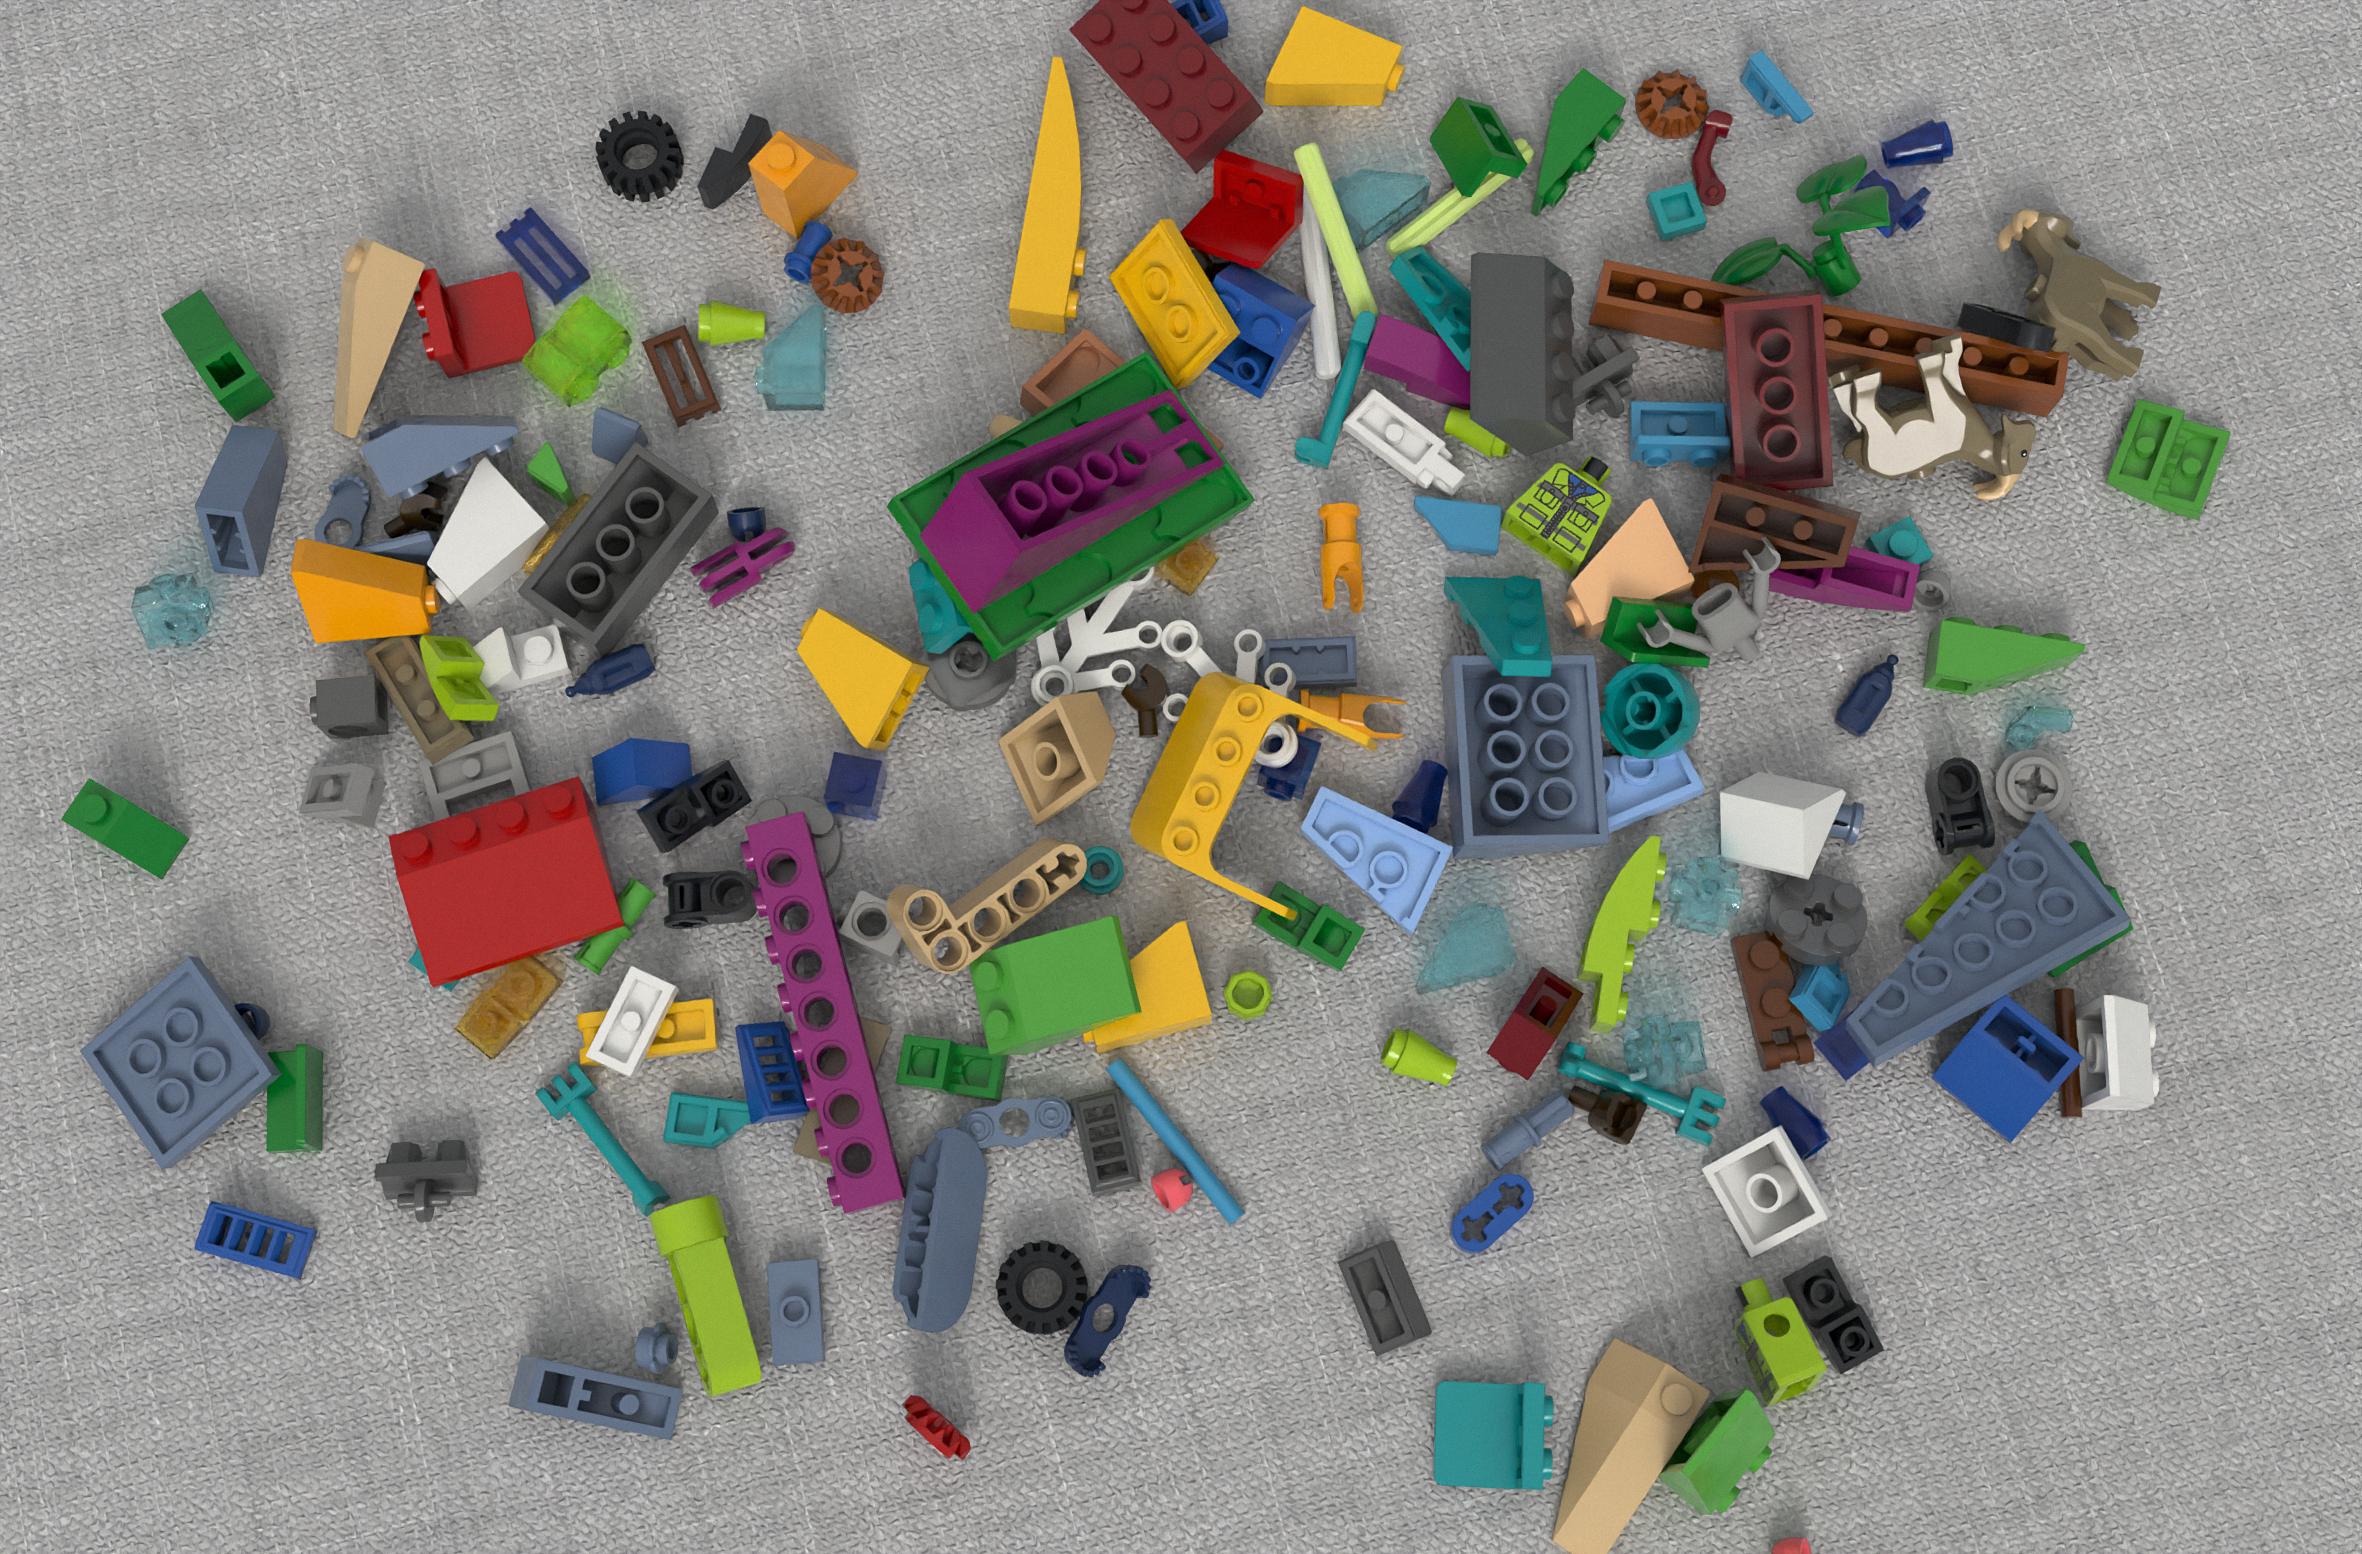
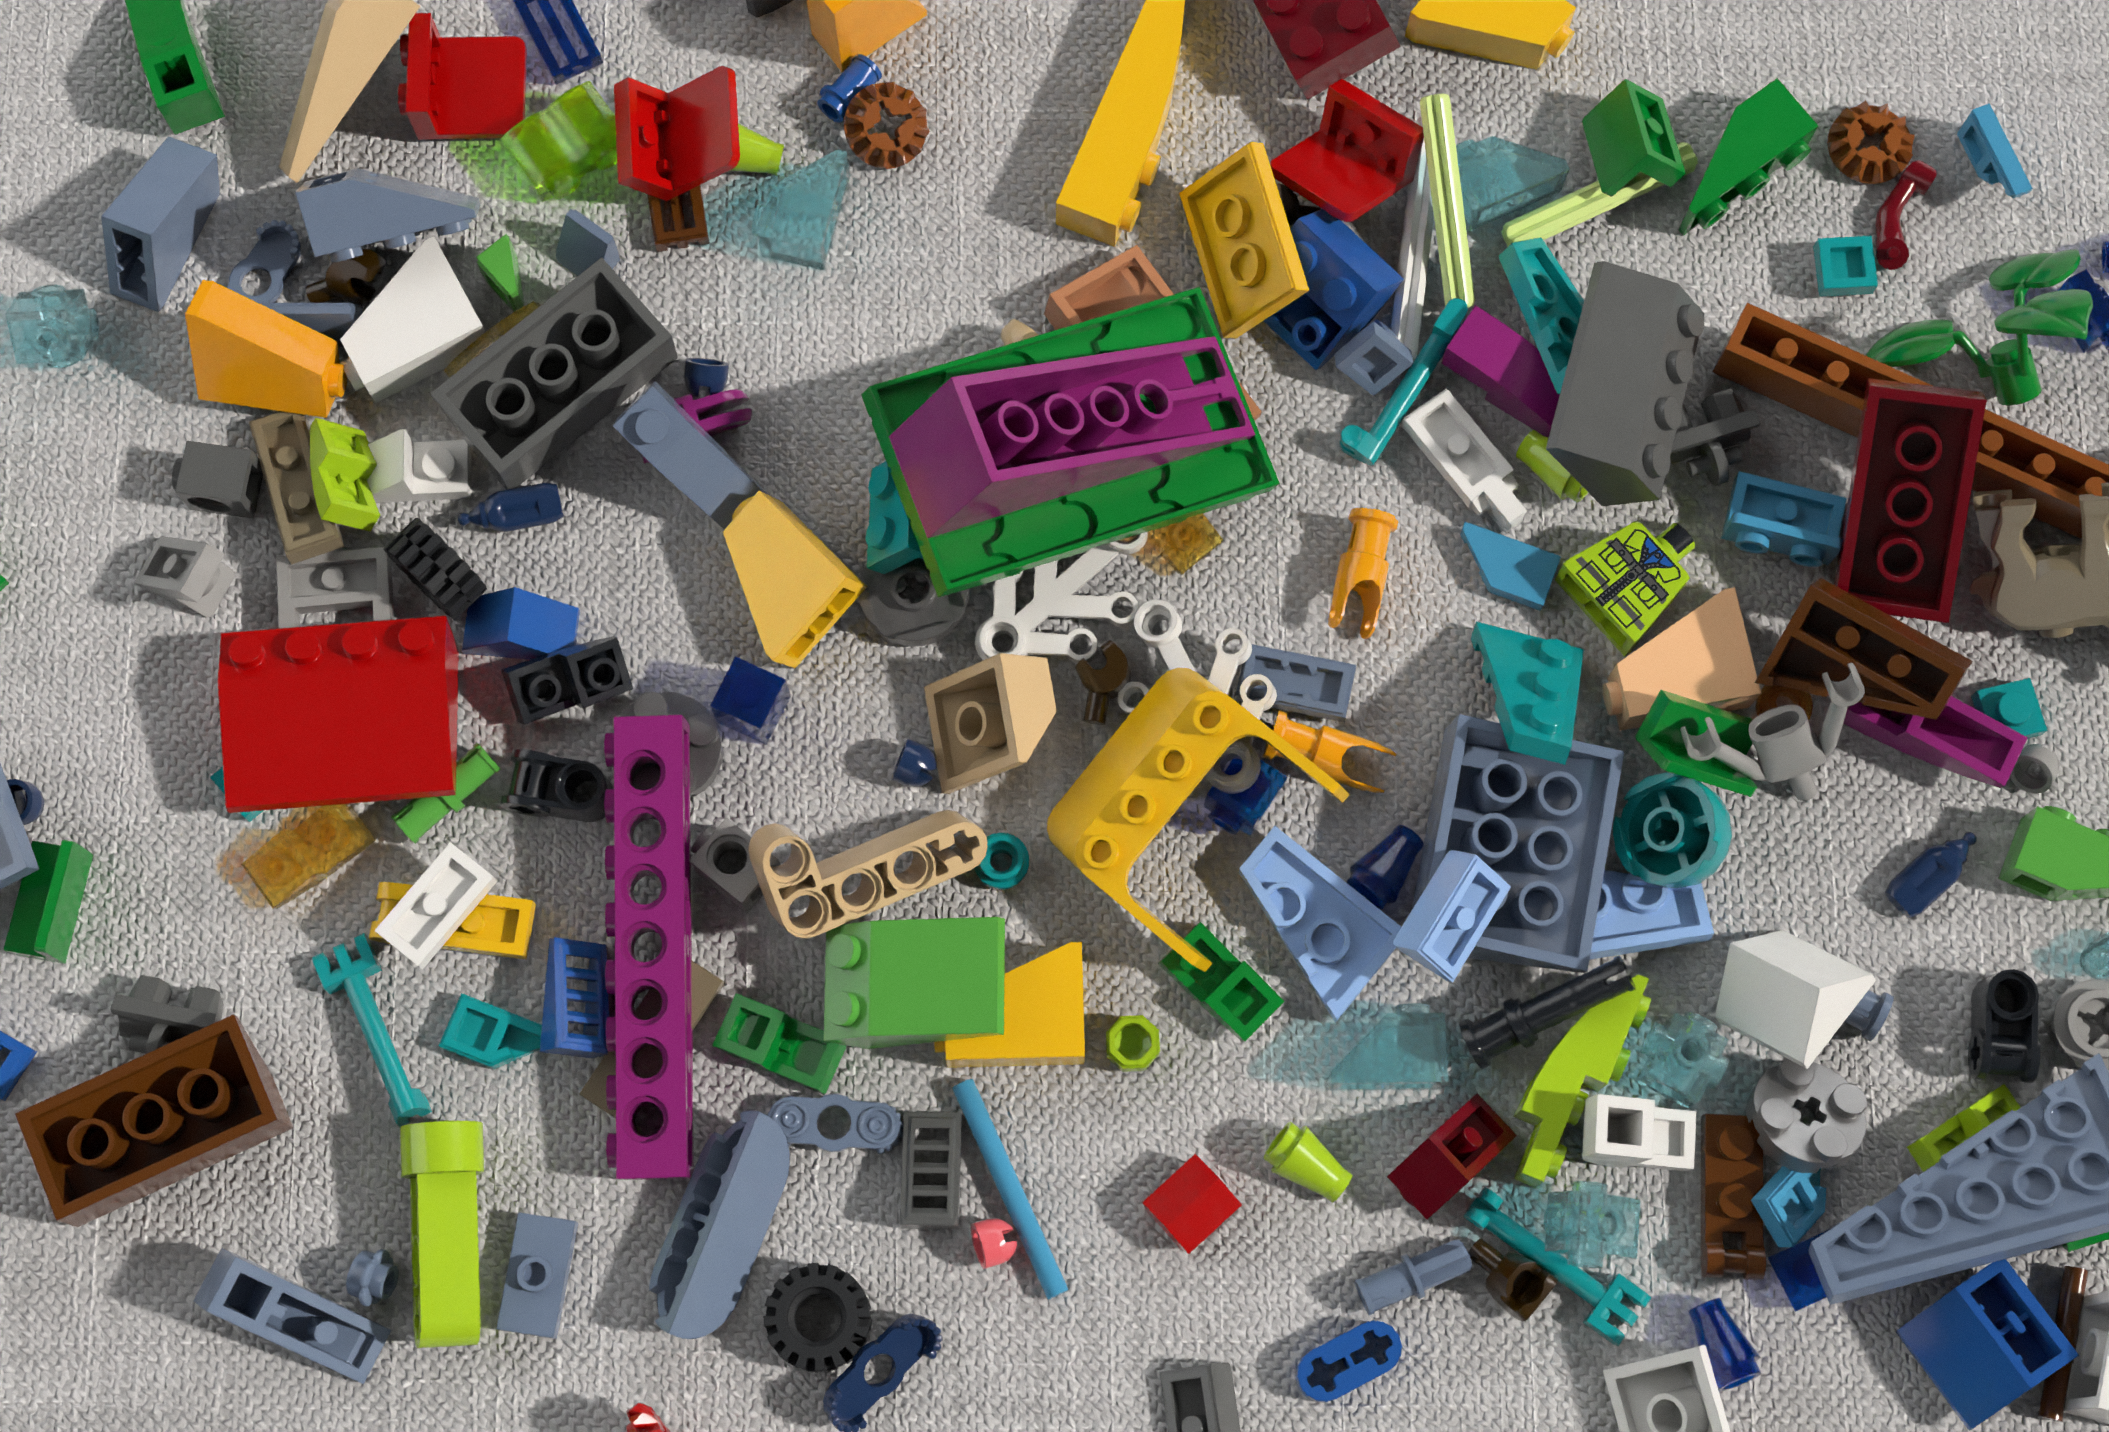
camera: 15 degrees right, 0 degrees up
(435, 1263) = (152, 1122): none -> reddish brown slope
(558, 738) = (435, 568): none -> black tyre
(672, 326) = (678, 136): none -> red bracket
(749, 591) = (686, 454): none -> sand blue slope
(1005, 806) = (913, 765): none -> dark blue hinge
(1306, 377) = (1374, 357): none -> sand blue tile
(1330, 1116) = (1191, 1204): none -> red piece
(1487, 822) = (1452, 914): none -> light blue slope
(1565, 898) = (1520, 1022): none -> black pin
(1682, 967) = (1638, 1134): none -> white brick

